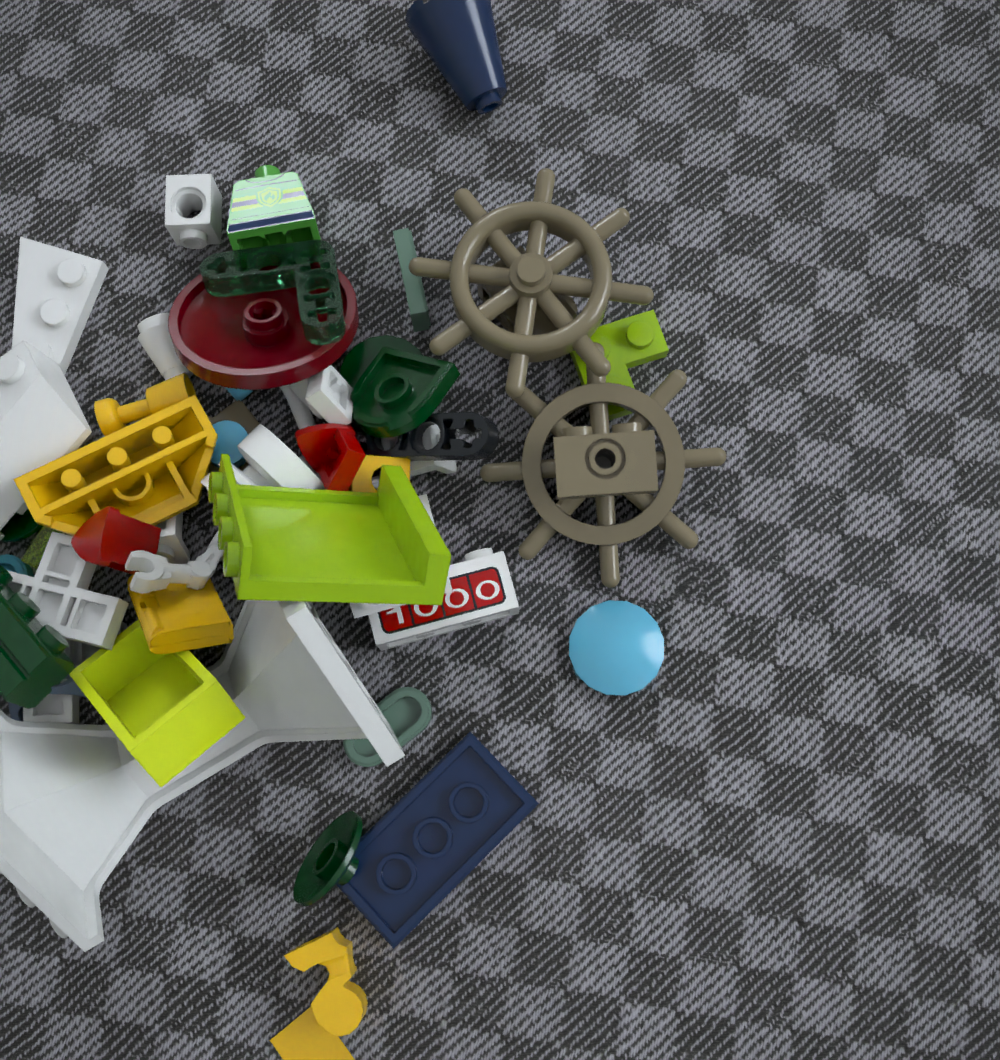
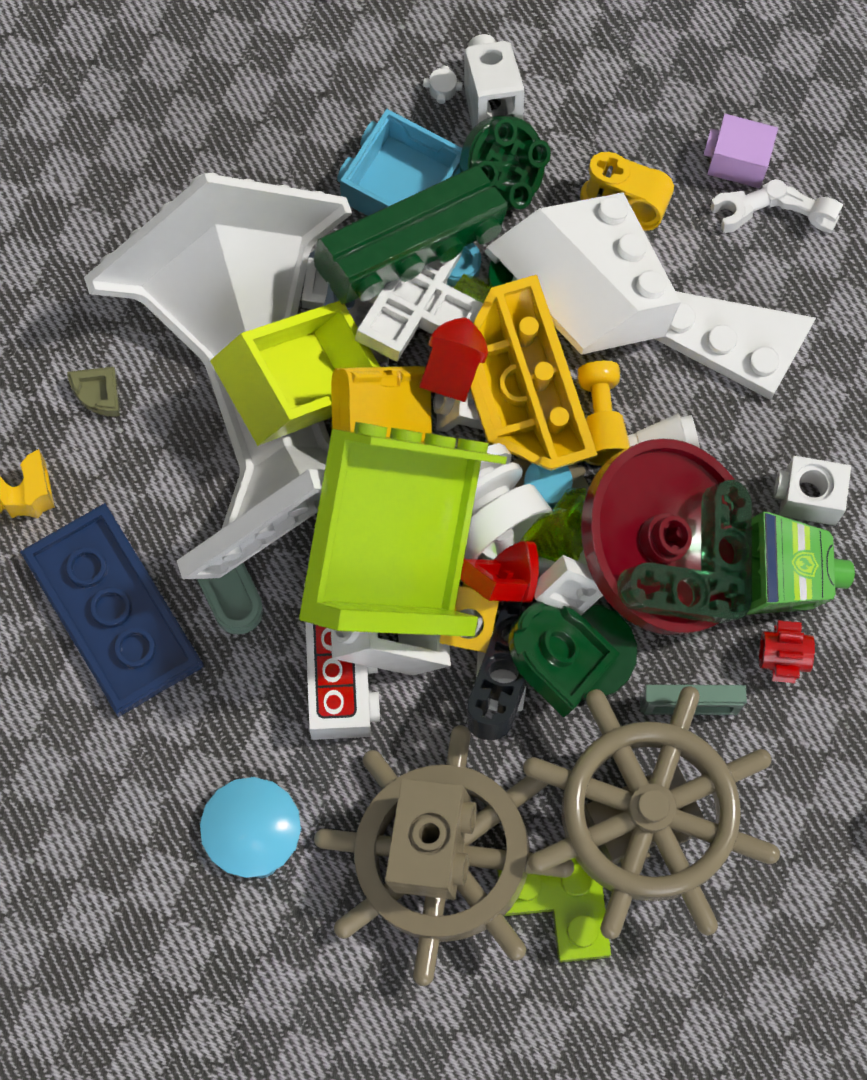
camera: 95 degrees right, 5 degrees down
(158, 573) = (415, 393): white piece -> none
(203, 916) = (96, 390): none -> olive tile
(276, 413) = (560, 530): none -> clear neon green tile
(329, 860) = (113, 505): dark green dish -> none
(351, 208) = (786, 651): none -> red gear

